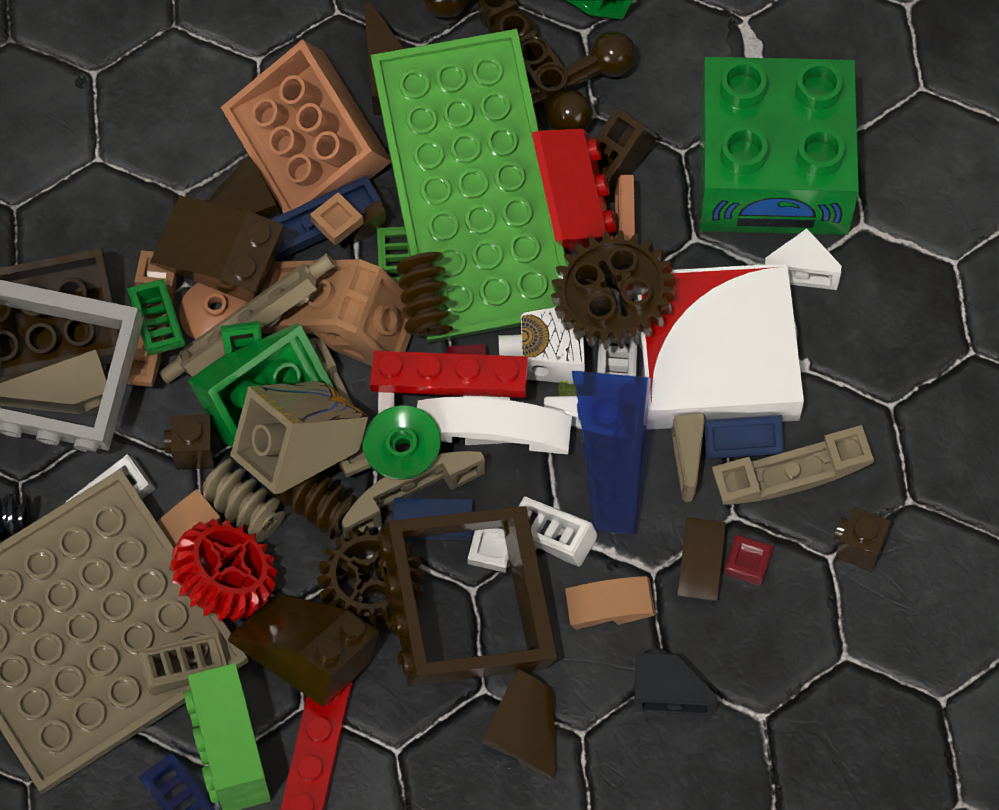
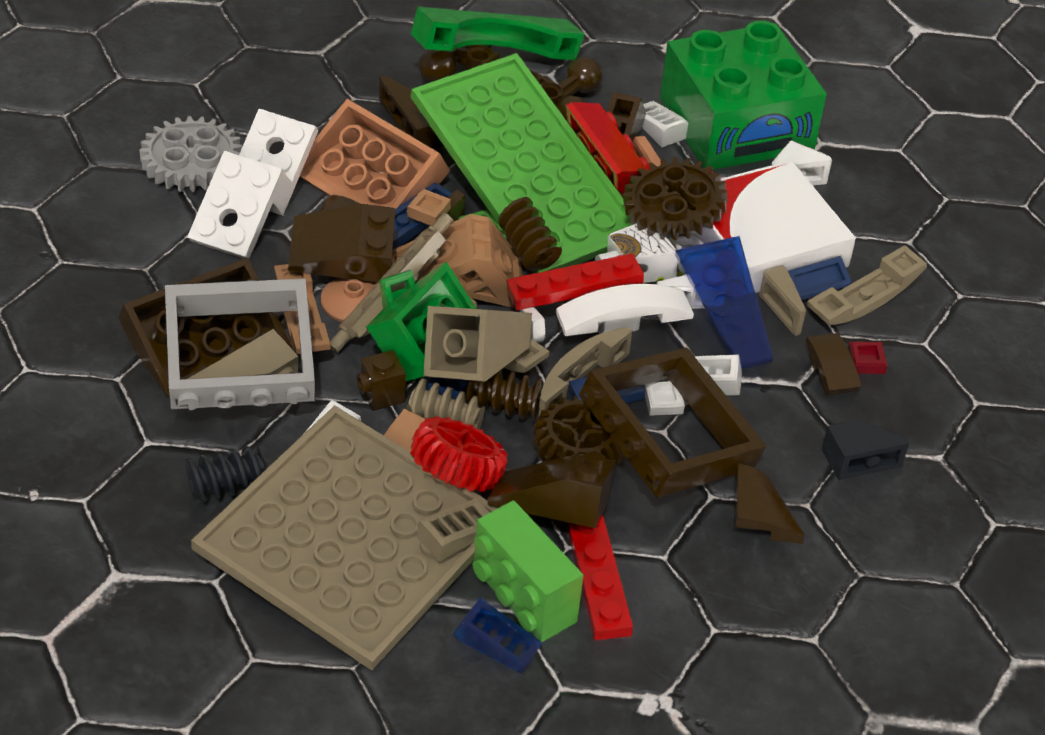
camera: 25 degrees left, 20 degrees down
(116, 59) = (186, 152): none -> light grey gear
(149, 294) = (318, 297): green slope -> none
(159, 130) = (252, 184): none -> white bracket
(396, 427) = (563, 331): green dish -> none
(610, 600) = (779, 405): medium nougat slope -> none
(677, 168) = (664, 124): none -> white slope
(861, 538) = (946, 318): dark brown brick -> none

